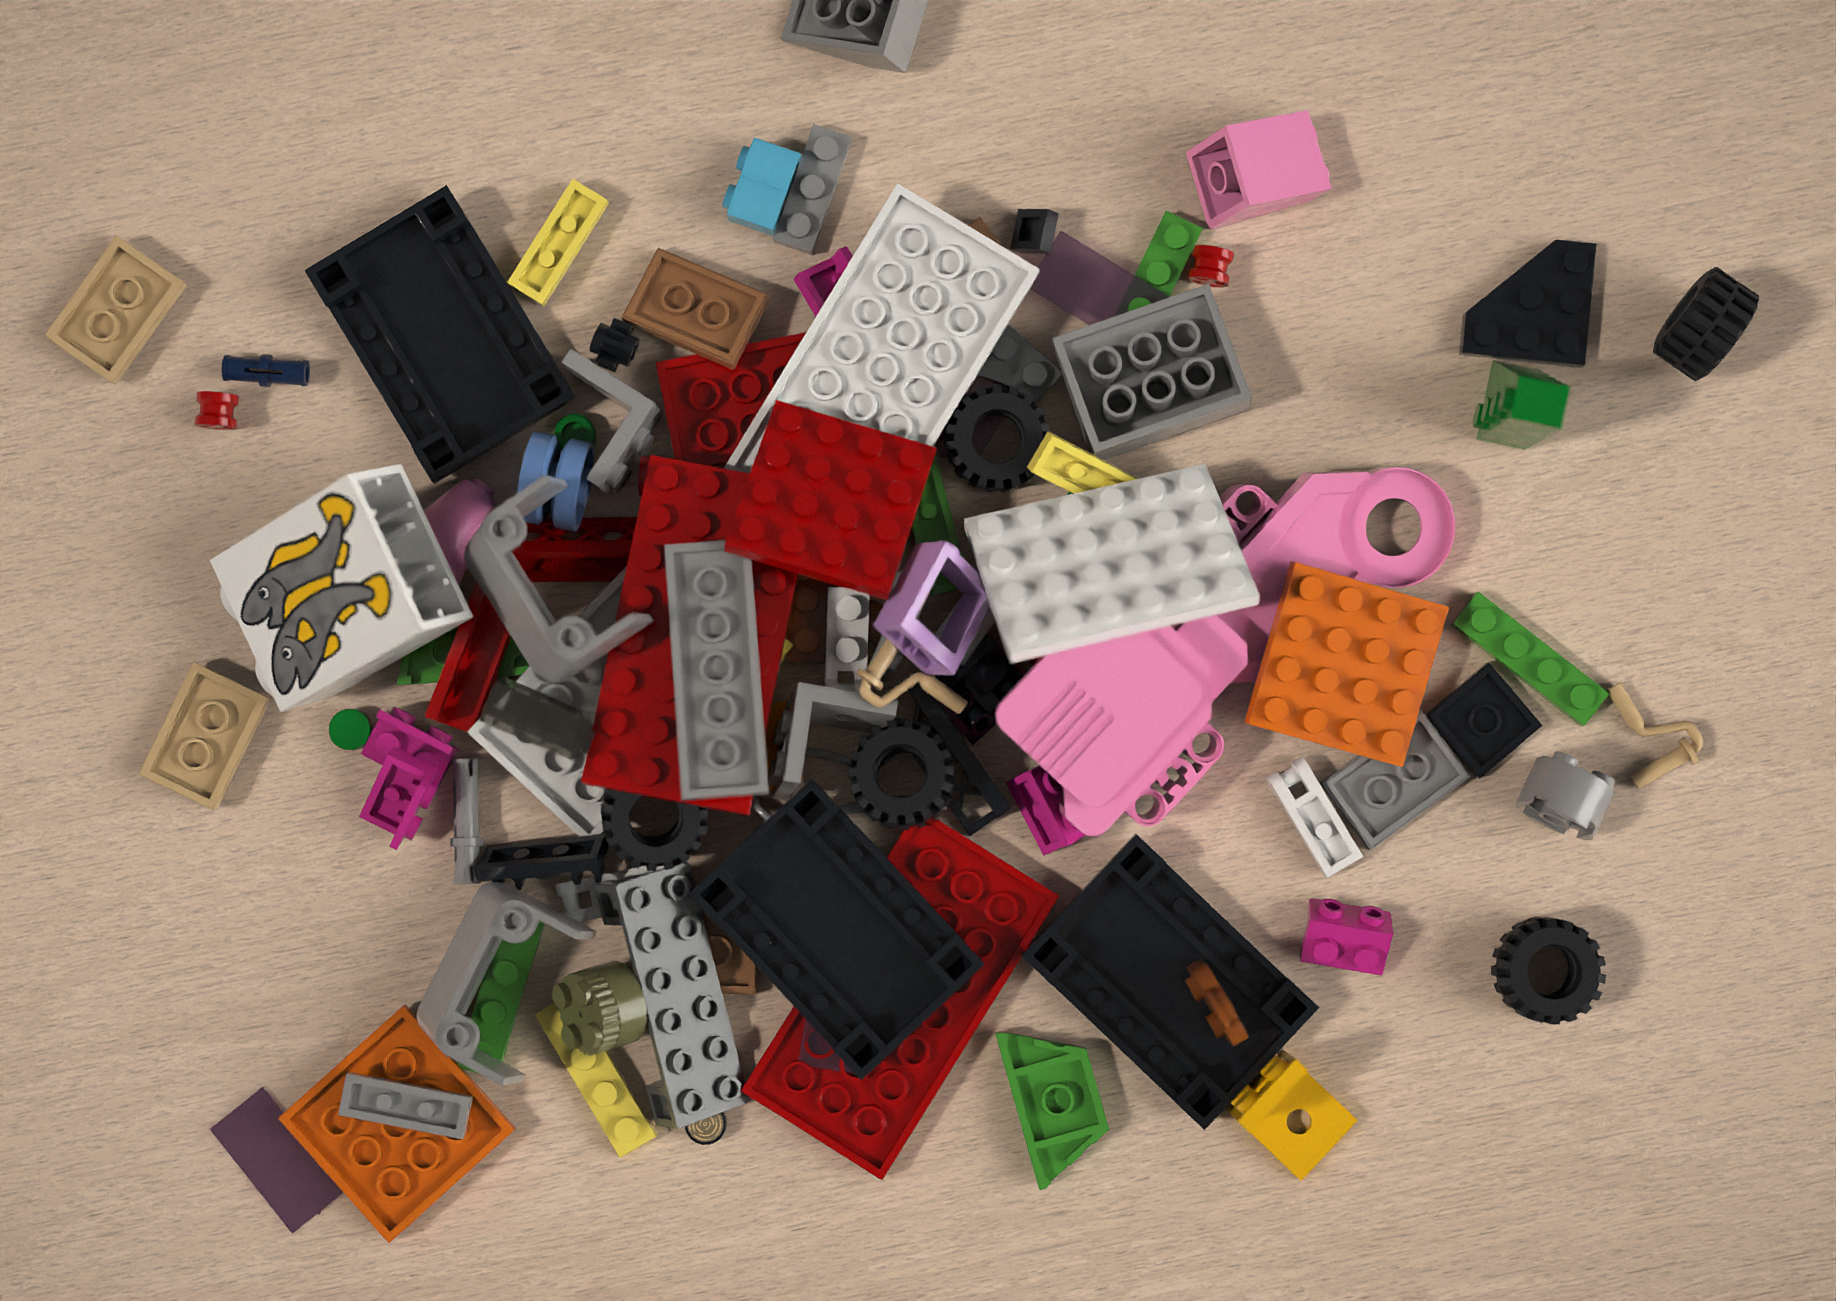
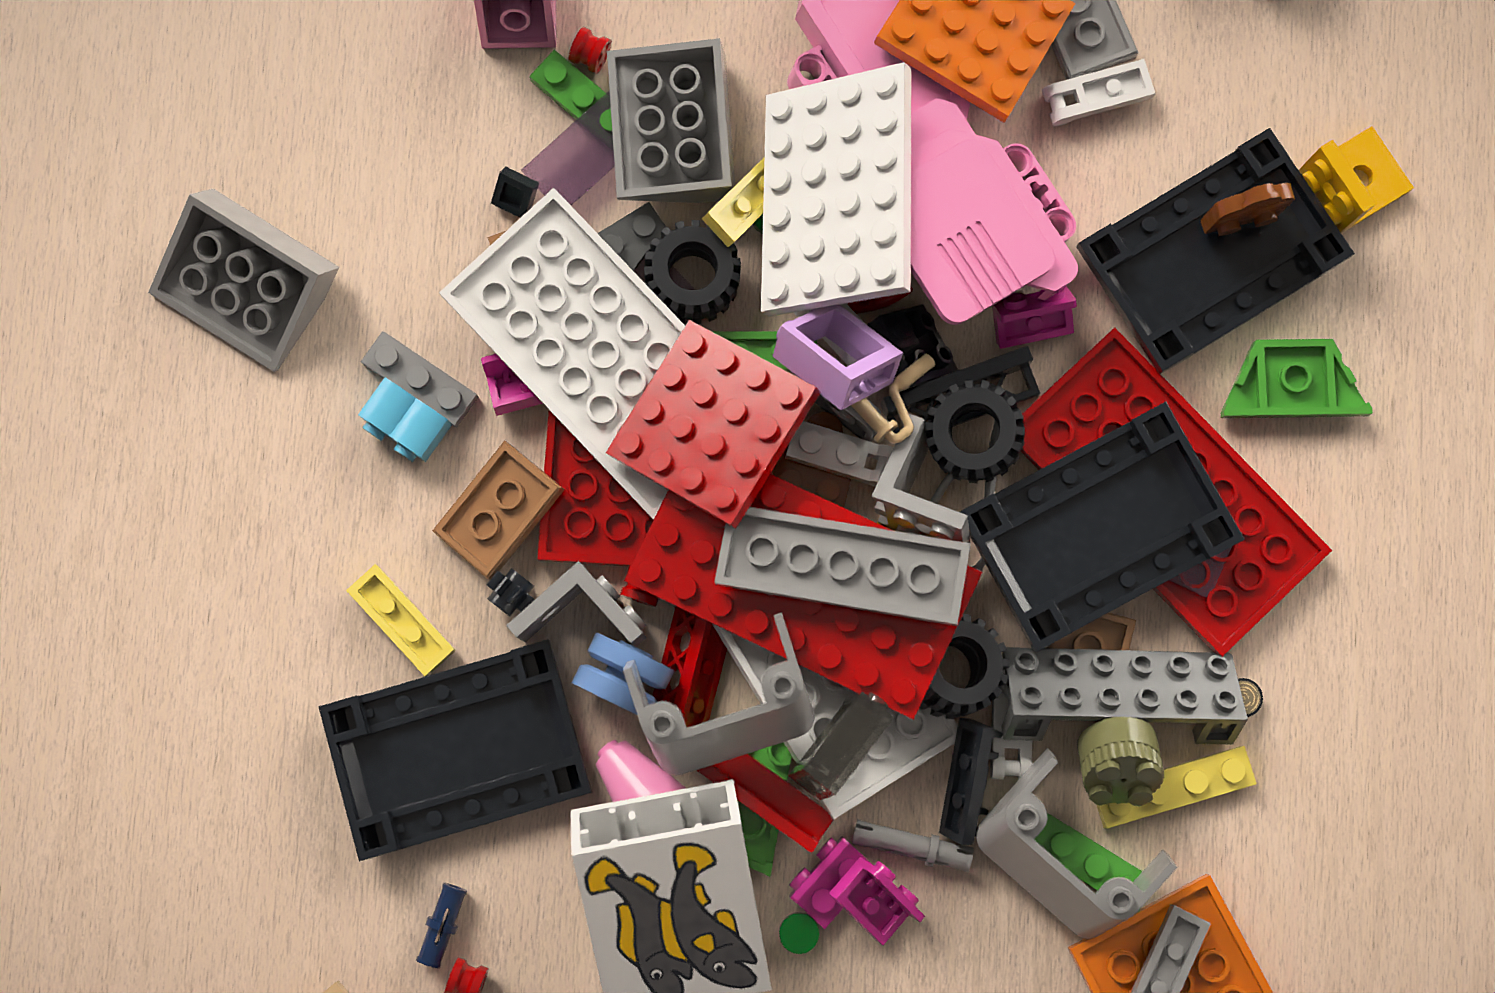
camera: 75 degrees left, 5 degrees down
(575, 427) = (576, 652): green tile -> none
(1347, 936) = (1209, 92): dark pink bracket -> none

